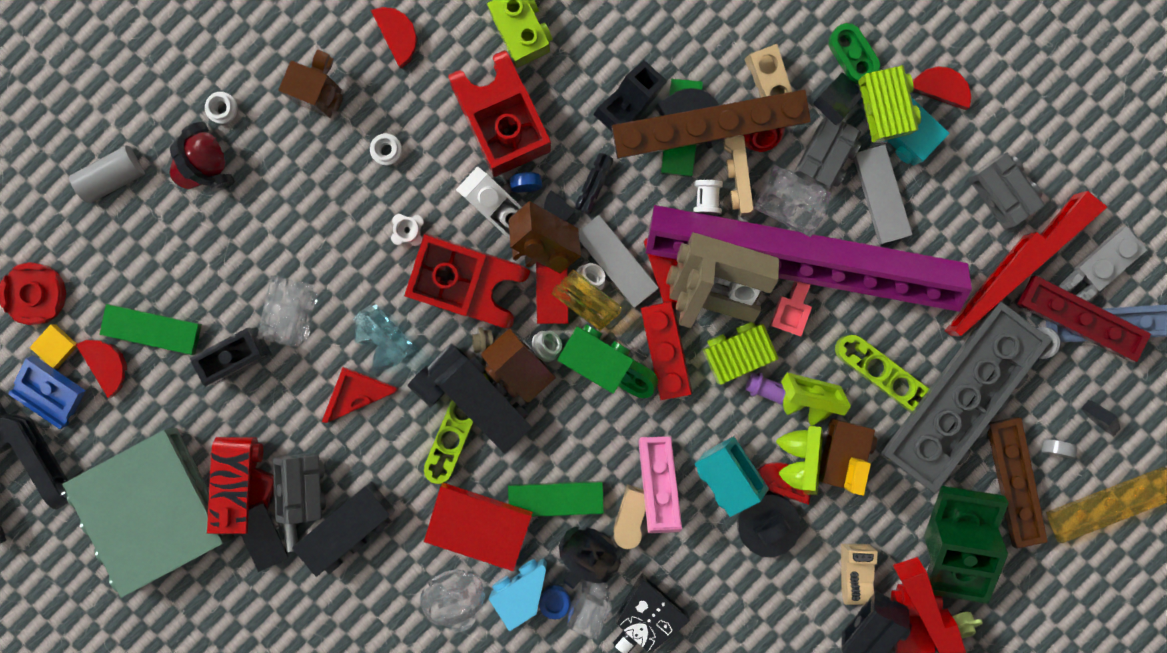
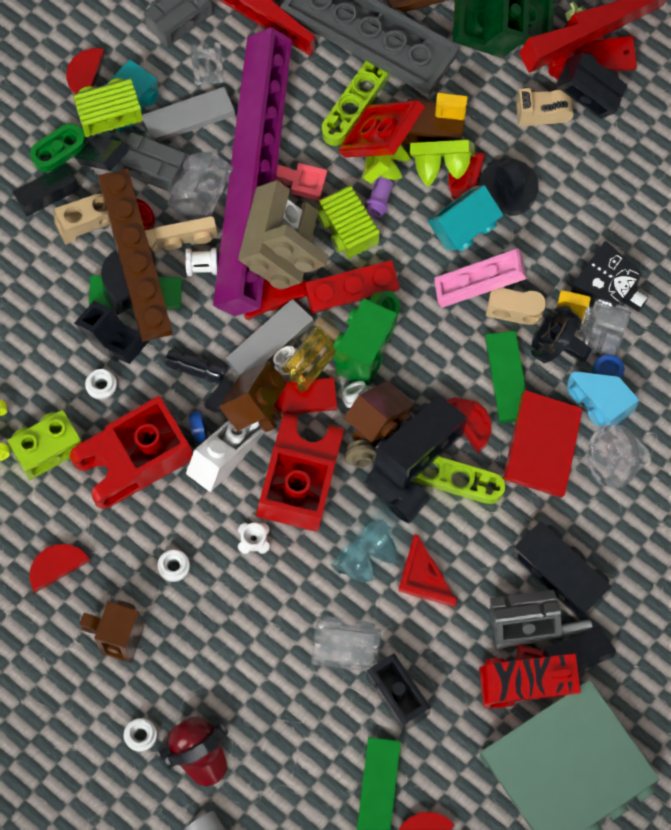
camera: 95 degrees left, 20 degrees down
(515, 460) = (478, 422): none -> red tile
(582, 77) = (97, 376): none -> white plate
(626, 576) = (575, 301): none -> yellow tile
(806, 39) = (46, 190): none -> black slope
(837, 398) = (381, 129): none -> red tile
(942, 216) = (206, 53): none -> clear tile

